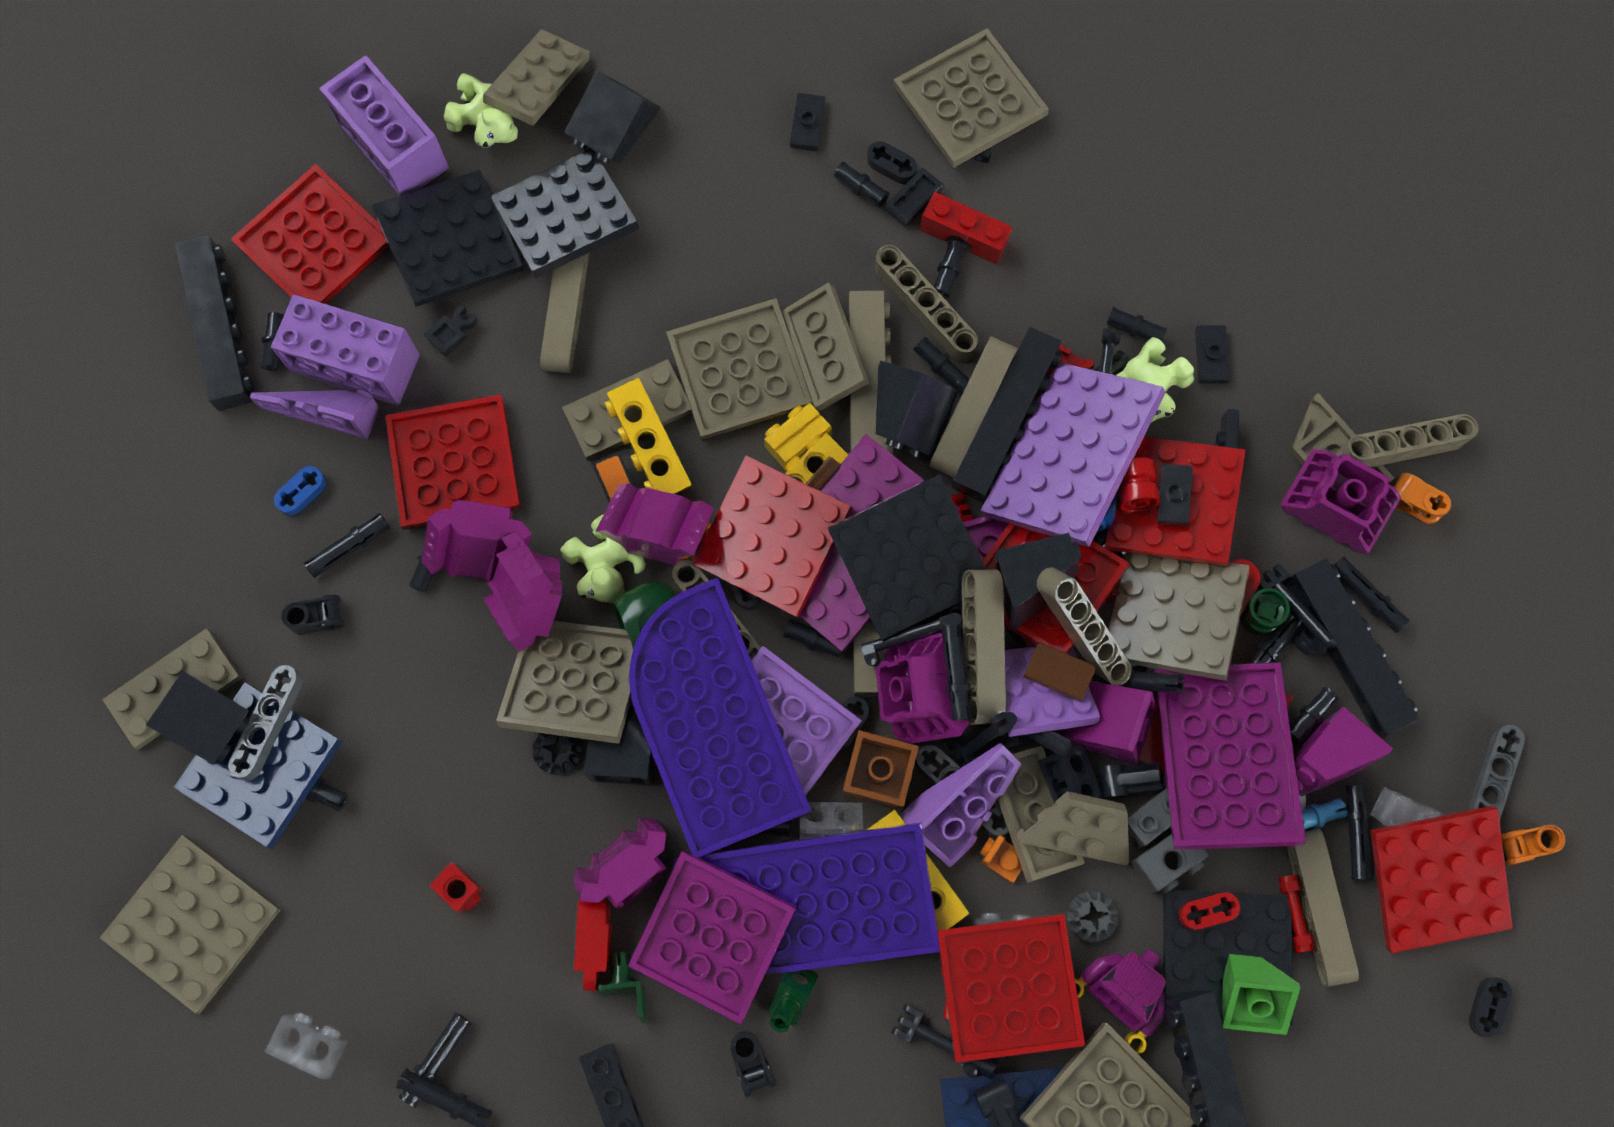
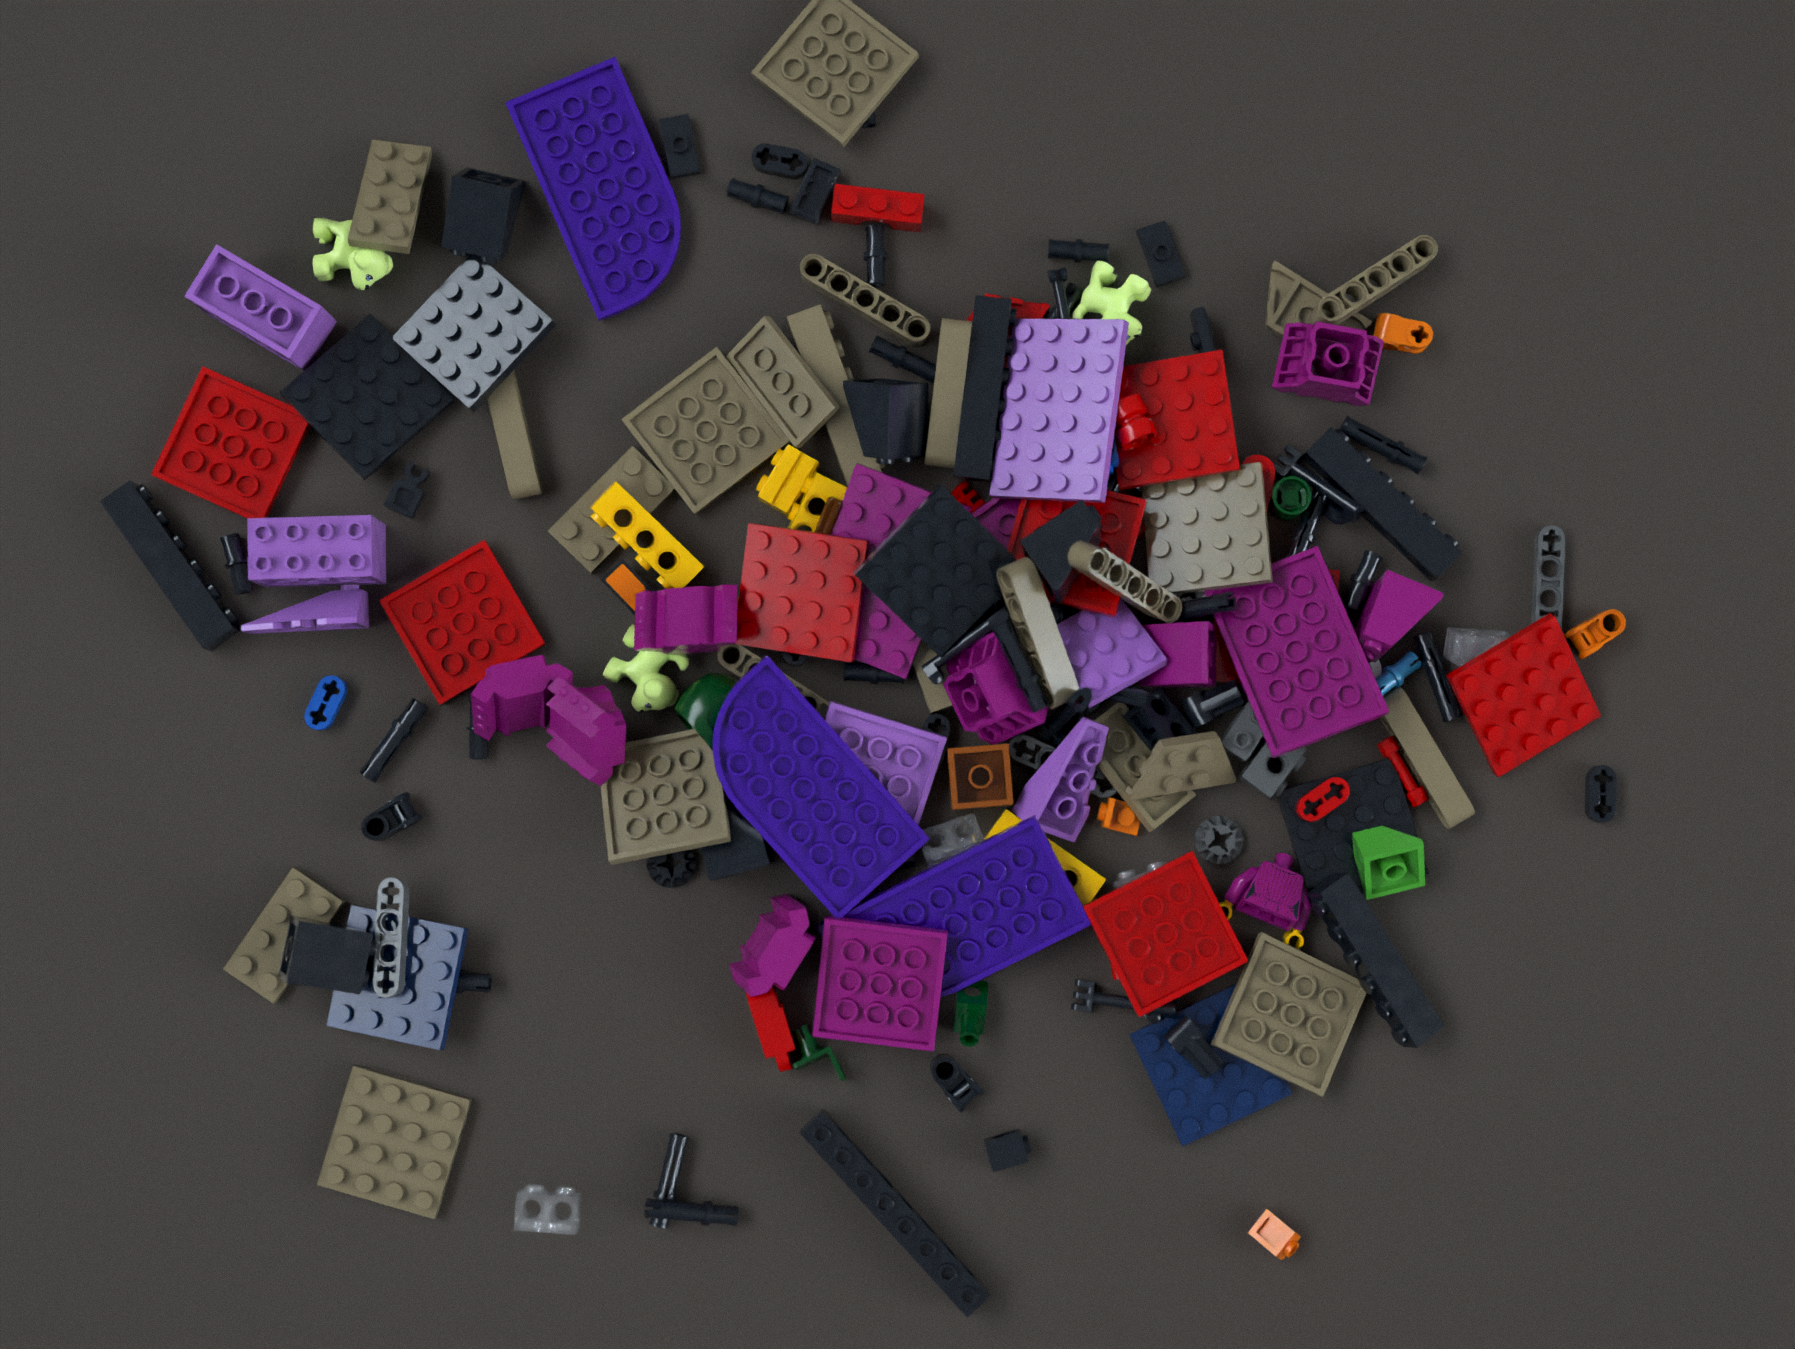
camera: 25 degrees left, 10 degrees up
(444, 883) = (615, 1023): red brick -> none
(727, 131) = (602, 184): none -> dark purple plate
(1060, 671) = (1116, 630): reddish brown slope -> none
(1175, 495) = (1169, 418): black plate -> none

